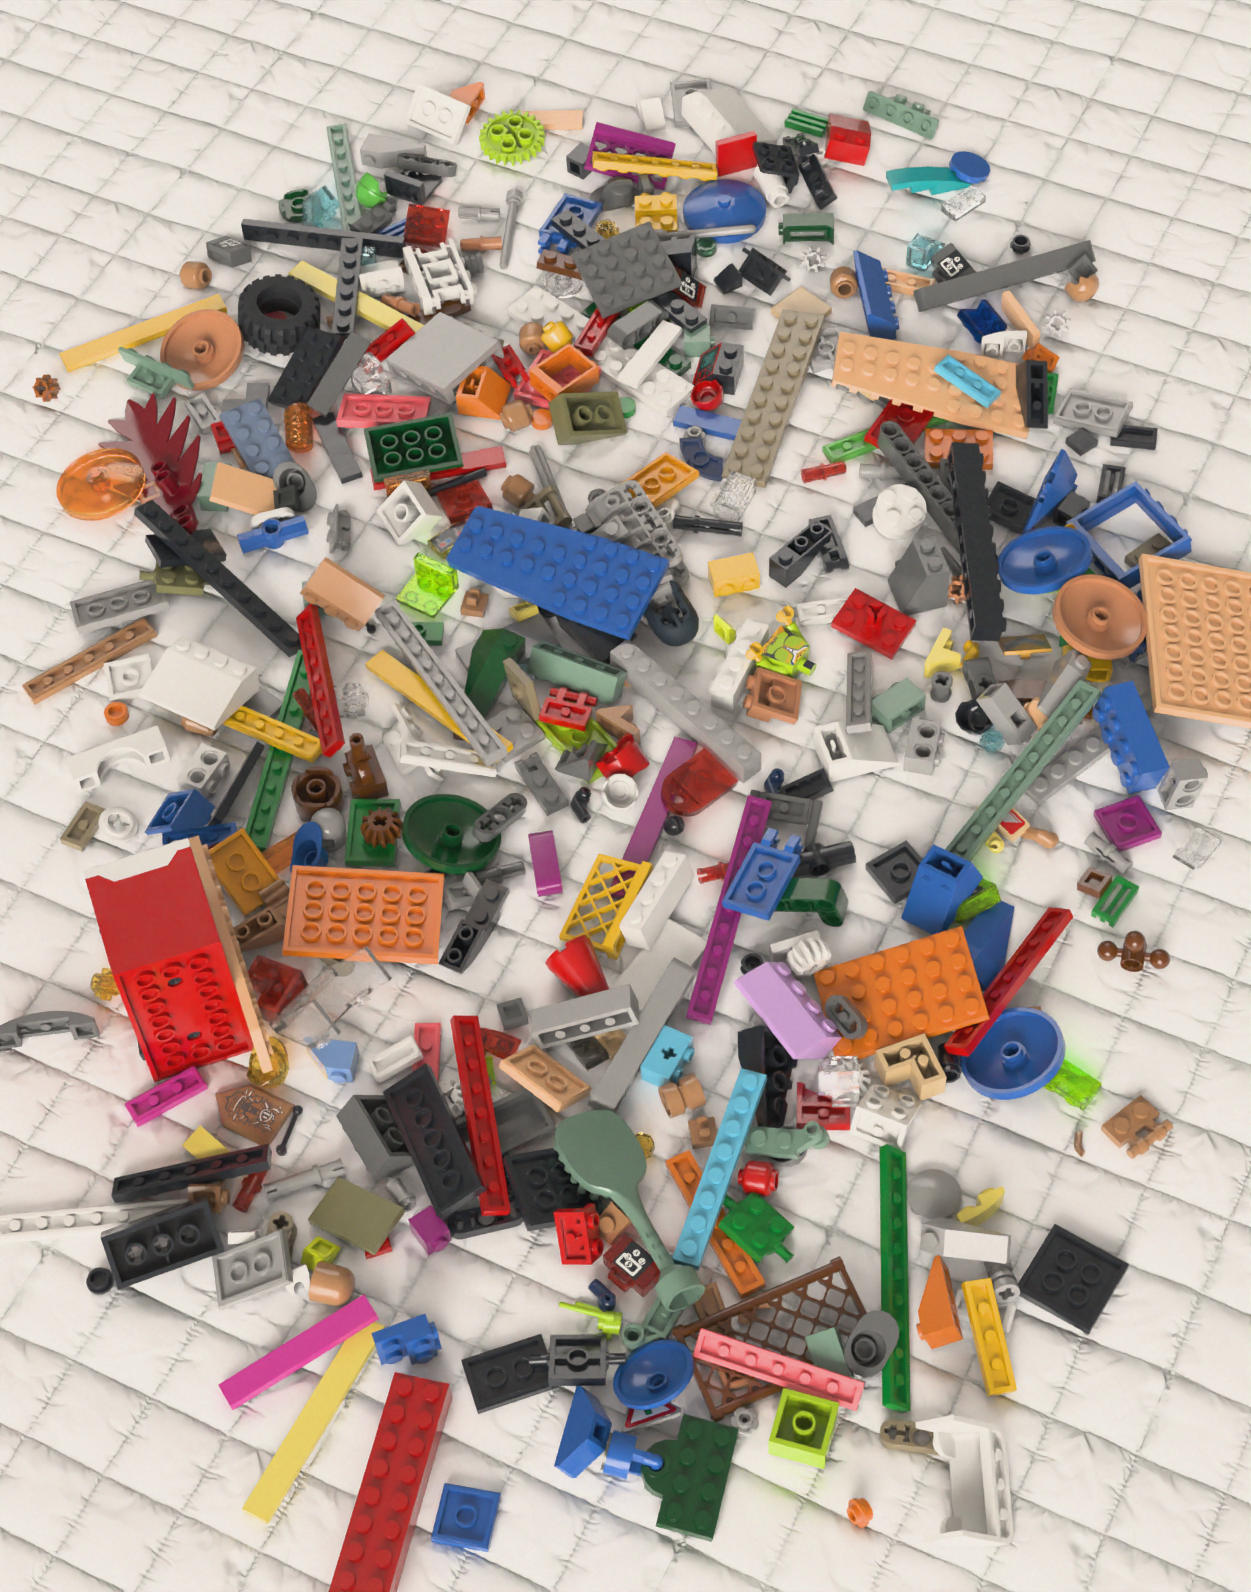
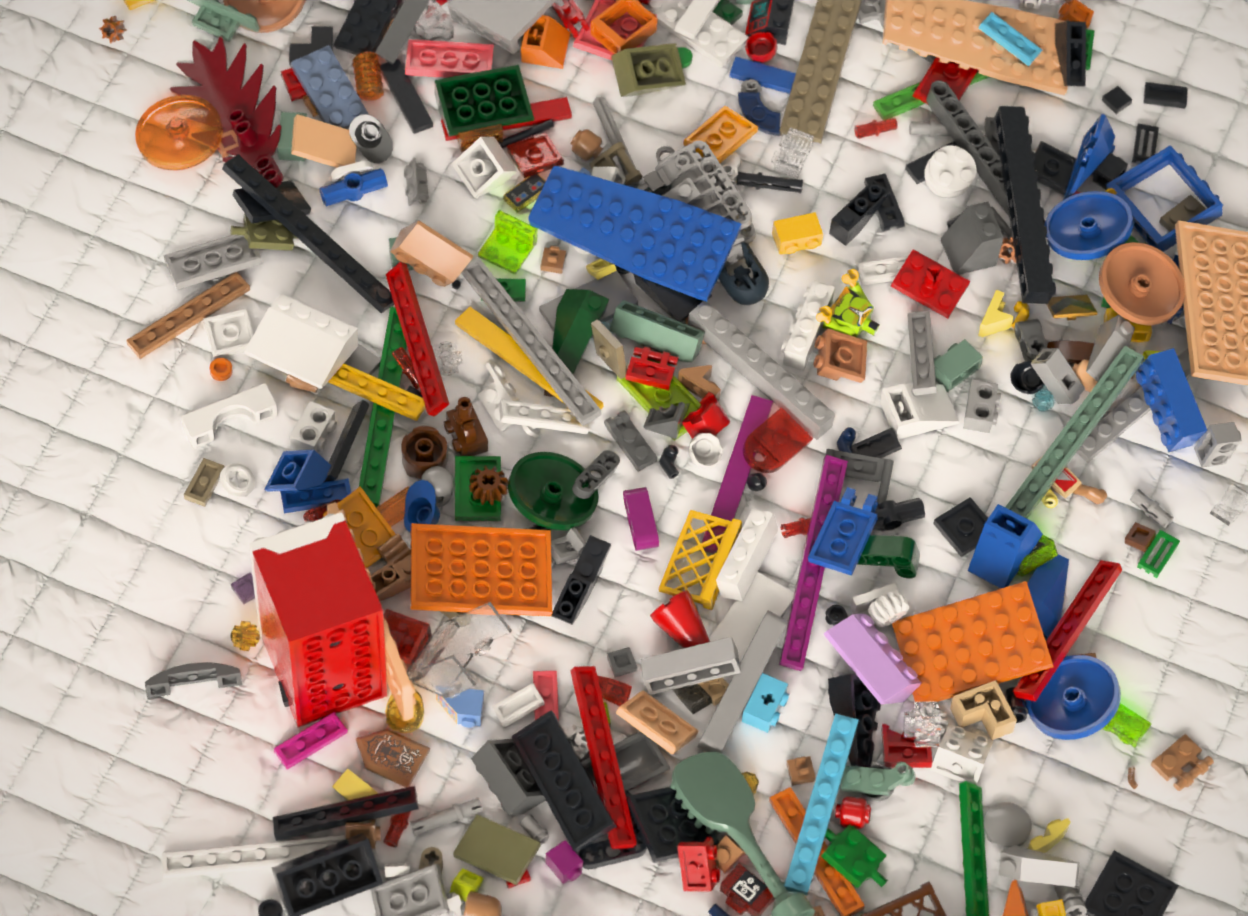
camera: 10 degrees left, 5 degrees up
(202, 412) = (270, 57): light grey plate -> none
(281, 1149) = (421, 789): black hinge -> none
(286, 497) = (363, 150): pearl dark grey plate -> none
(499, 873) = (598, 527): dark grey axle -> none
(516, 415) = (578, 66): medium nougat head -> none
(518, 729) = (604, 385): light grey plate -> none
(541, 419) = (602, 69): orange tile -> none
(683, 1095) = (782, 737): medium nougat wheel -> none
(724, 629) = (791, 288): neon yellow slope -> none
(848, 1018) = (925, 667): dark grey plate -> none
(939, 442) = (986, 99): orange plate -> none
(941, 685) = (995, 347): dark grey bush -> none
(1093, 412) = (1127, 70): light grey tile -> none
(1127, 823) = (1168, 480): magenta tile -> none
(1133, 953) = (1176, 603): reddish brown piece -> none

